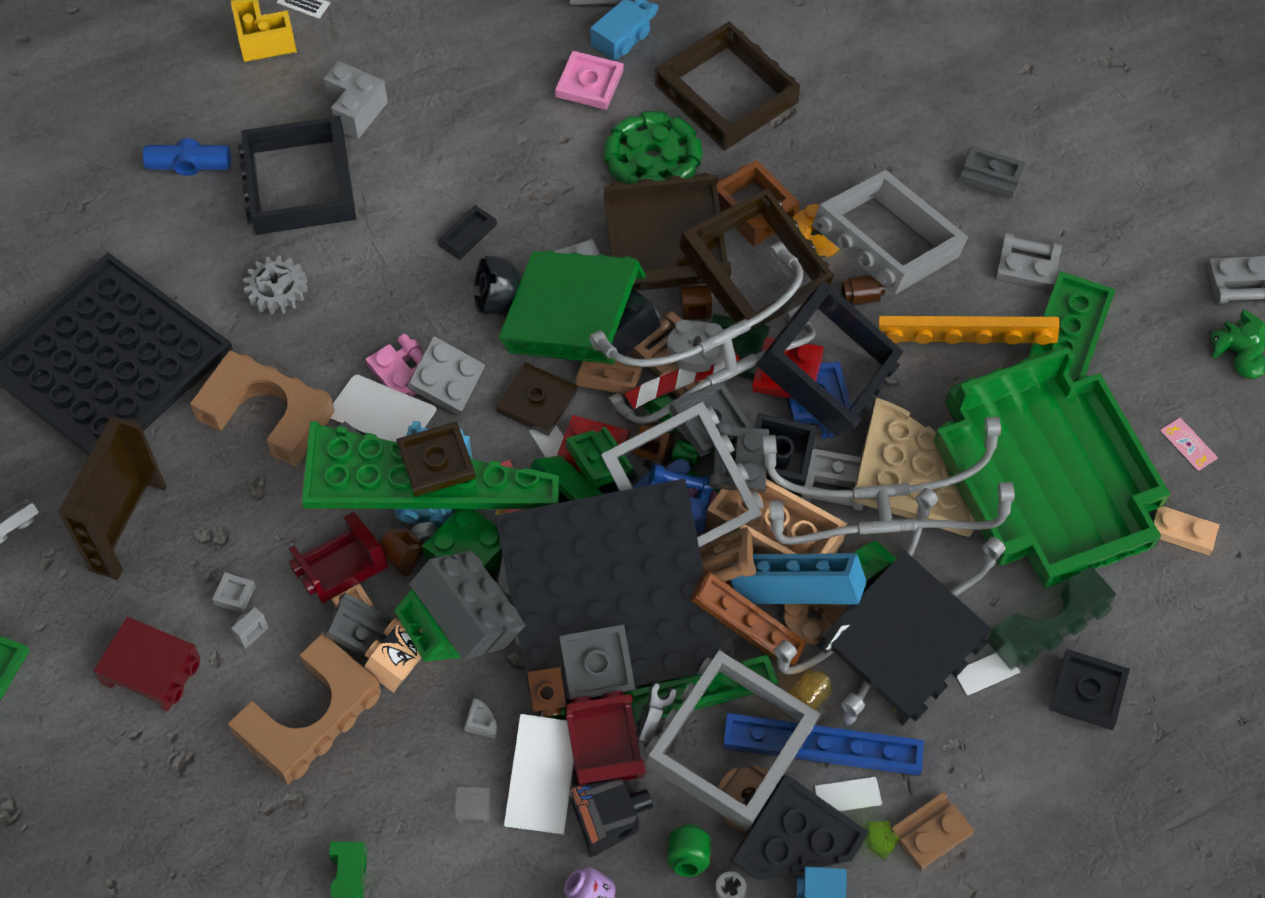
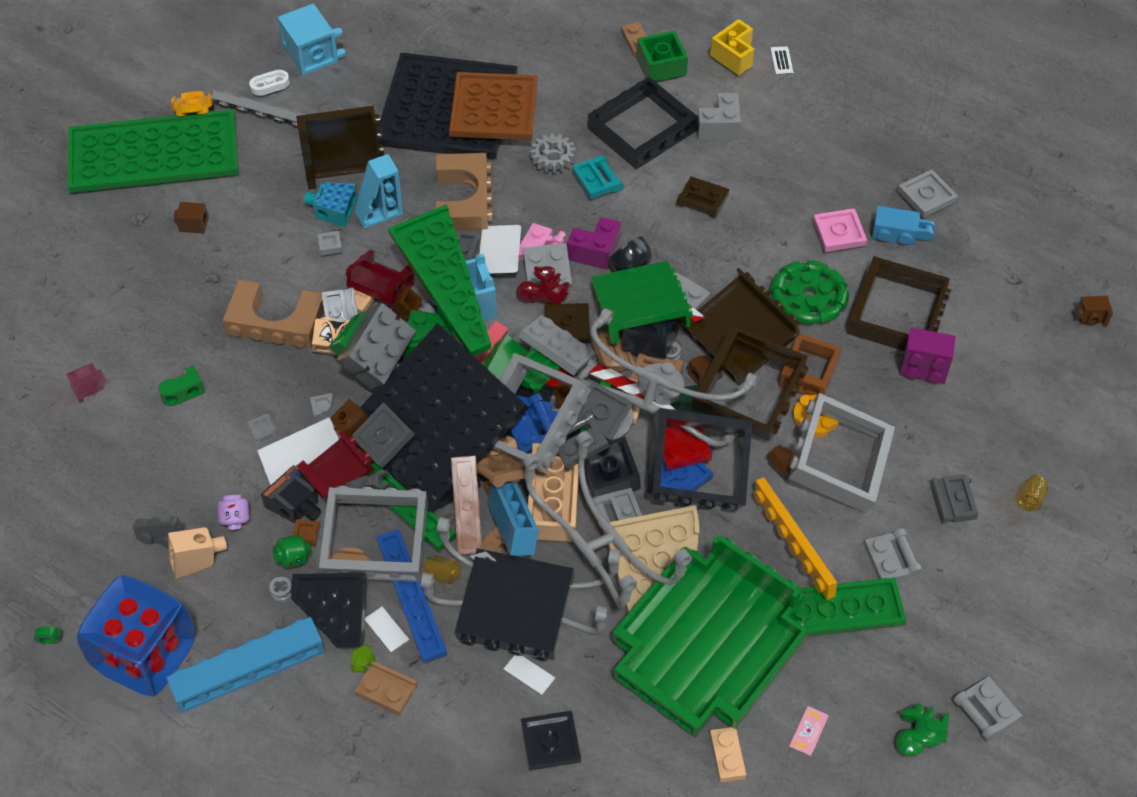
camera: 60 degrees right, 5 degrees down
(66, 740) = (191, 217): none -> reddish brown brick
(148, 663) = (258, 227): dark red panel -> none
(159, 306) = (494, 106): none -> dark orange plate
(160, 116) = (631, 33): none -> medium nougat plate
(171, 558) = (333, 202): none -> torso
(187, 157) = (614, 65): blue piece -> none
(210, 493) = (379, 193): none -> medium azure wedge
(217, 103) = (662, 56): none -> green brick
(249, 627) = (310, 261): light grey plate -> none
(341, 266) = (593, 181): none -> teal plate
(436, 458) = (457, 273): dark brown plate -> none
(446, 170) = (703, 196): none -> dark brown plate
(451, 311) = (596, 246): none -> magenta brick
(467, 232) = (667, 227): black tile -> none
(482, 390) = (547, 290): none -> dark red animal
(575, 419) = (557, 345): none -> light grey plate
(662, 822) = (307, 530): none -> dark orange tile
(815, 93) = (927, 355): none -> magenta brick
(874, 559) = (560, 555): green panel -> none
(1022, 638) = (618, 706): clear green arch -> none
(1025, 105) = (1033, 493): none -> clear yellow brick

